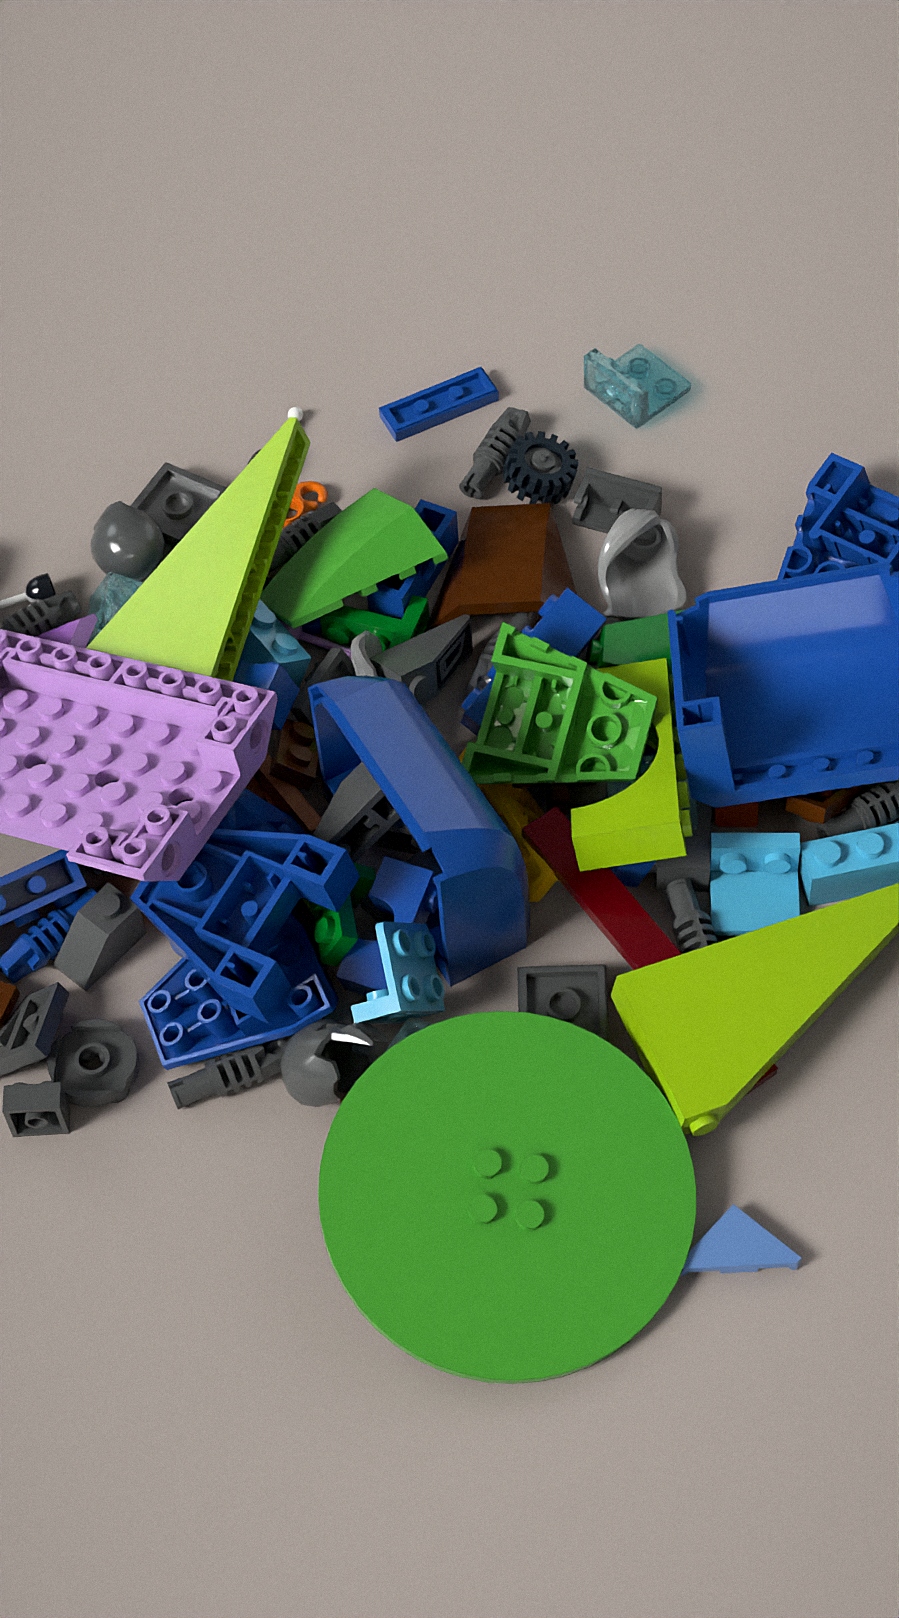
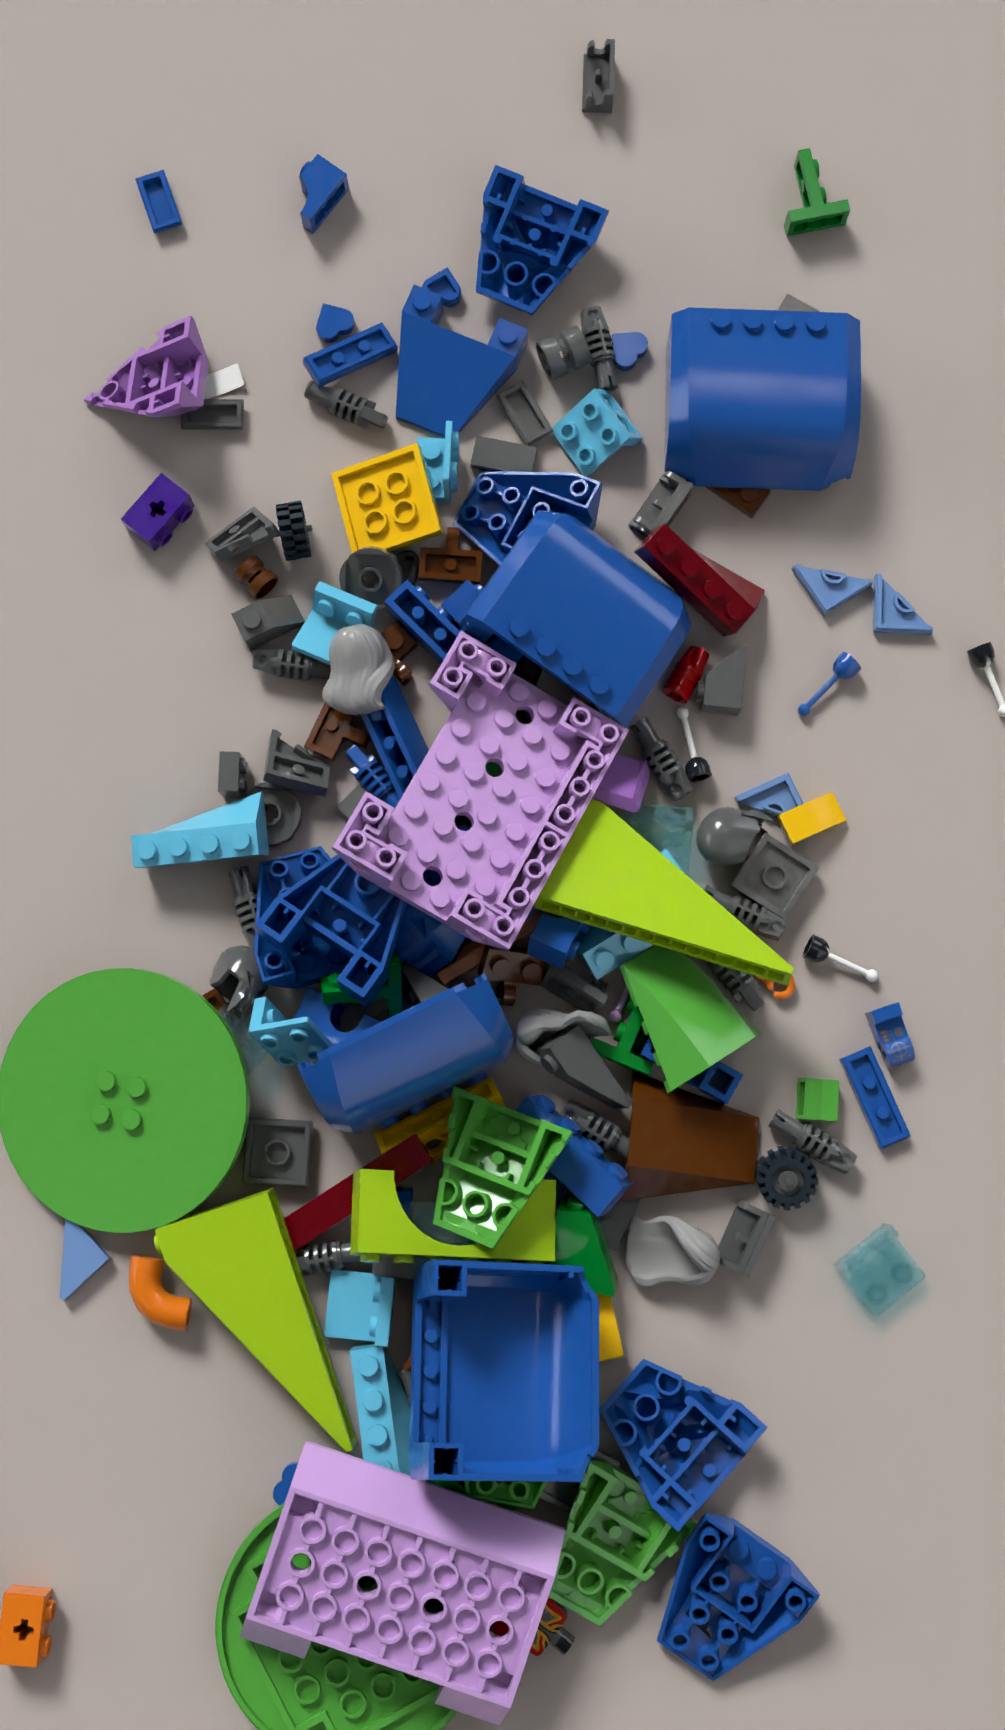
camera: 90 degrees right, 25 degrees up
(80, 511) = (772, 797): none -> medium blue tile
(106, 478) = (811, 818): none -> yellow slope
(122, 1111) = (217, 835): none -> medium azure wedge
(363, 389) = (891, 1035): none -> blue leg
(445, 450) = (817, 1099): none -> bright green piece
(779, 1139) = (152, 1298): none -> orange cylinder

